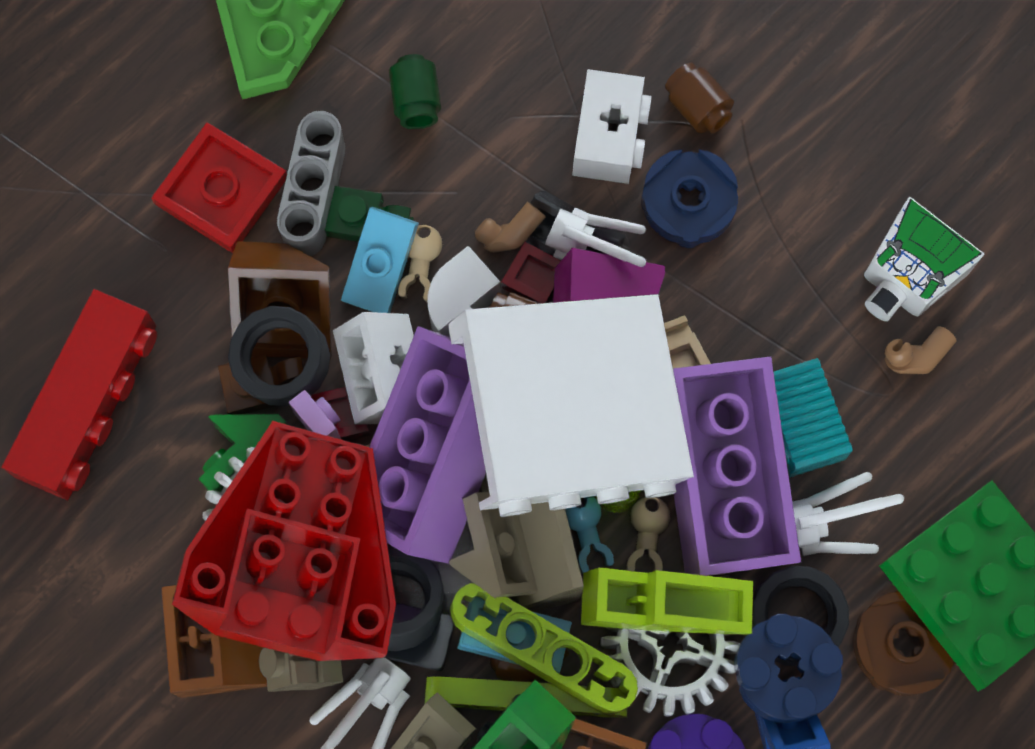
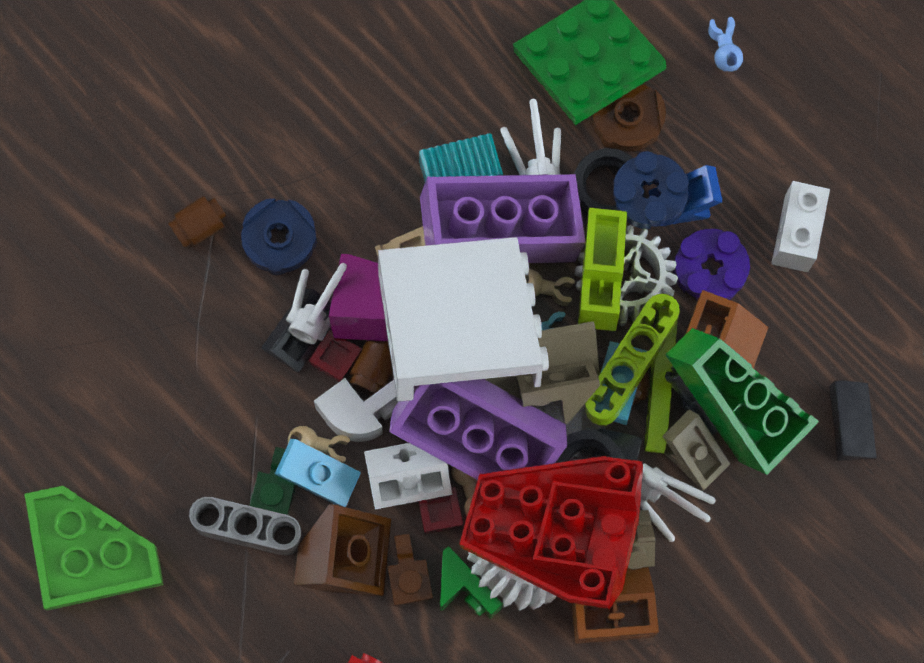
camera: 90 degrees left, 0 degrees up
(219, 187) = (242, 601): red plate -> none
(255, 327) = (427, 542): black tyre -> none
(315, 416) = (448, 520): lavender plate -> none
(415, 91) = (172, 441): dark green brick -> none
(509, 235) = (301, 373): medium nougat arm -> none
(612, 100) = (230, 304): white brick -> none
(917, 263) = (345, 76): torso -> none
(919, 358) = (417, 82): medium nougat arm -> none

